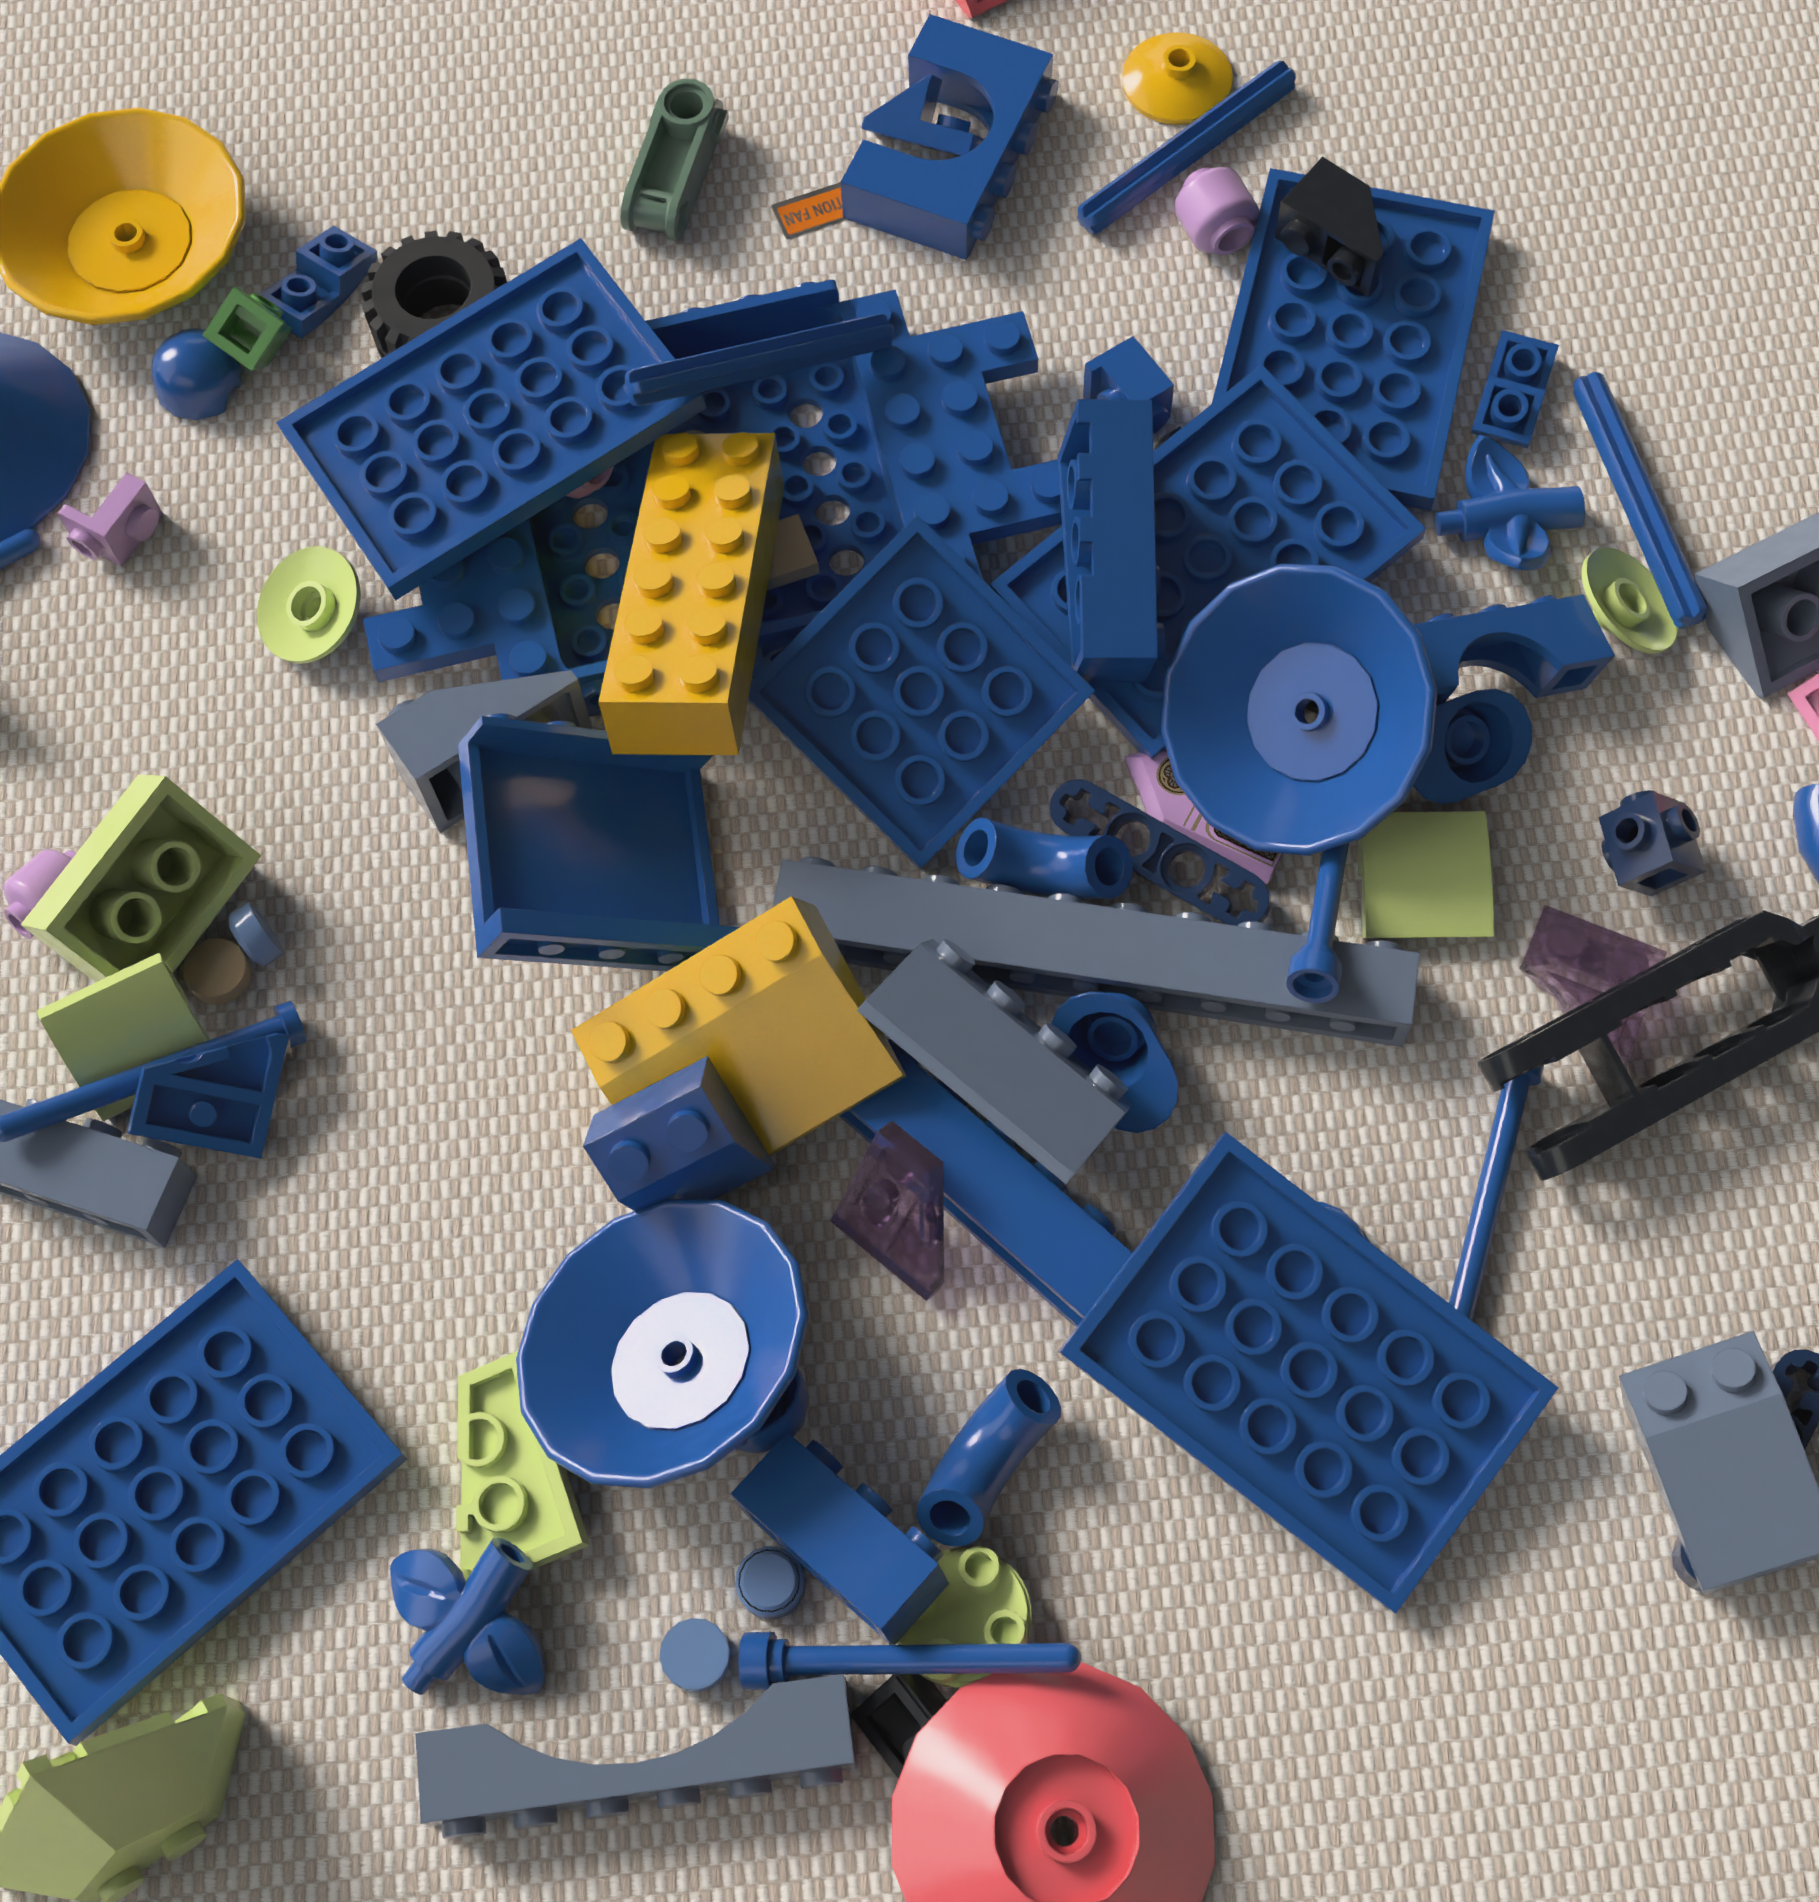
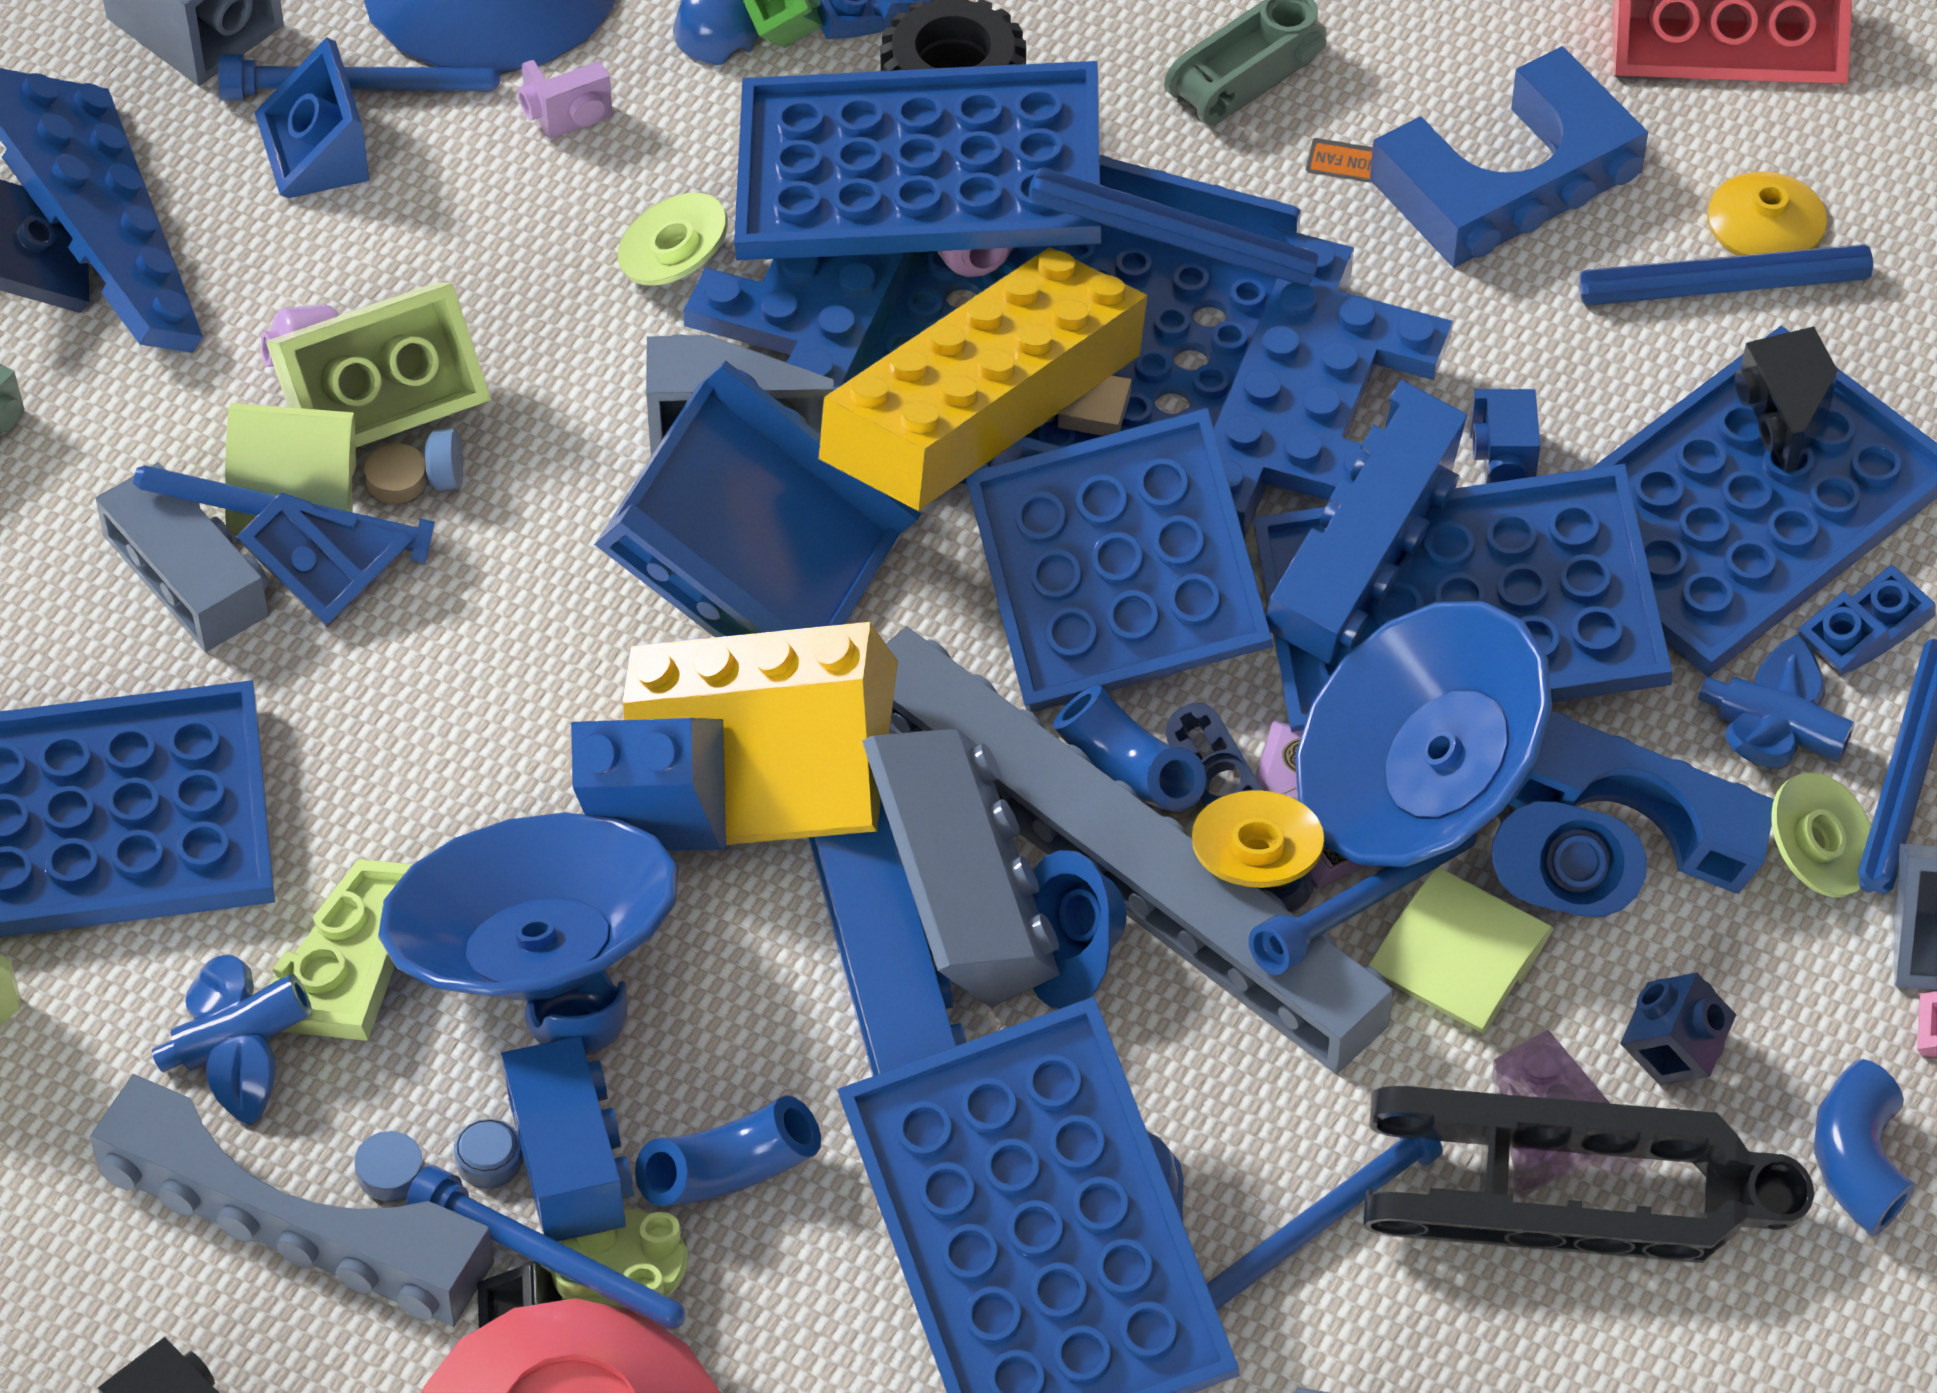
camera: 30 degrees right, 15 degrees down
(898, 1209) = (796, 934): clear purple wing -> none
(910, 119) = (1488, 125): blue slope -> none
(1215, 862) = (1257, 838): none -> yellow dish
(1216, 210) = (1703, 334): lavender head -> none

